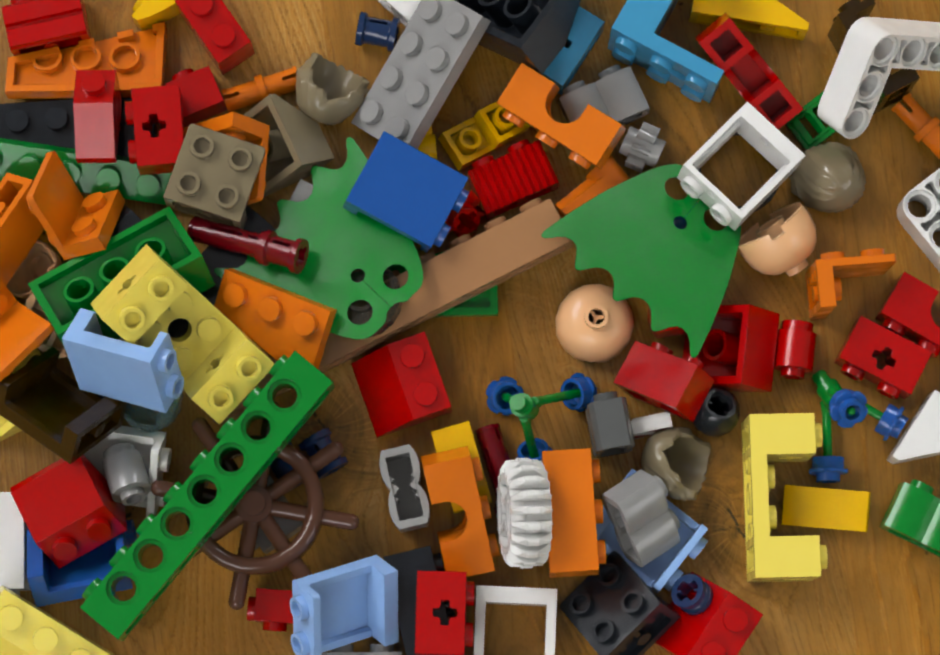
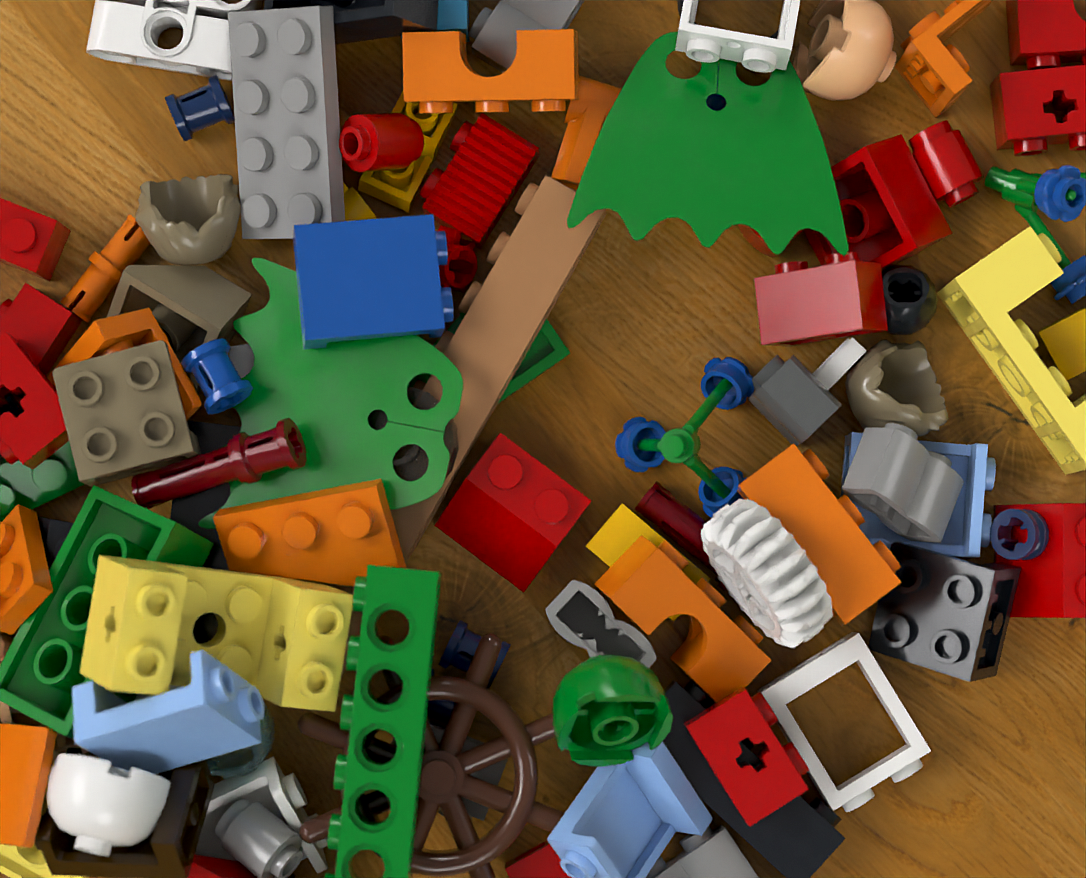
camera: 30 degrees left, 5 degrees up
(54, 387) = (103, 802): none -> white cylinder
(282, 190) = (216, 376): none -> blue bush
(378, 531) = (609, 710): none -> green cylinder
(467, 118) = (380, 141): none -> red brick
(589, 340) = (685, 314): light nougat cylinder -> none
(642, 147) = (608, 40): light grey gear -> none

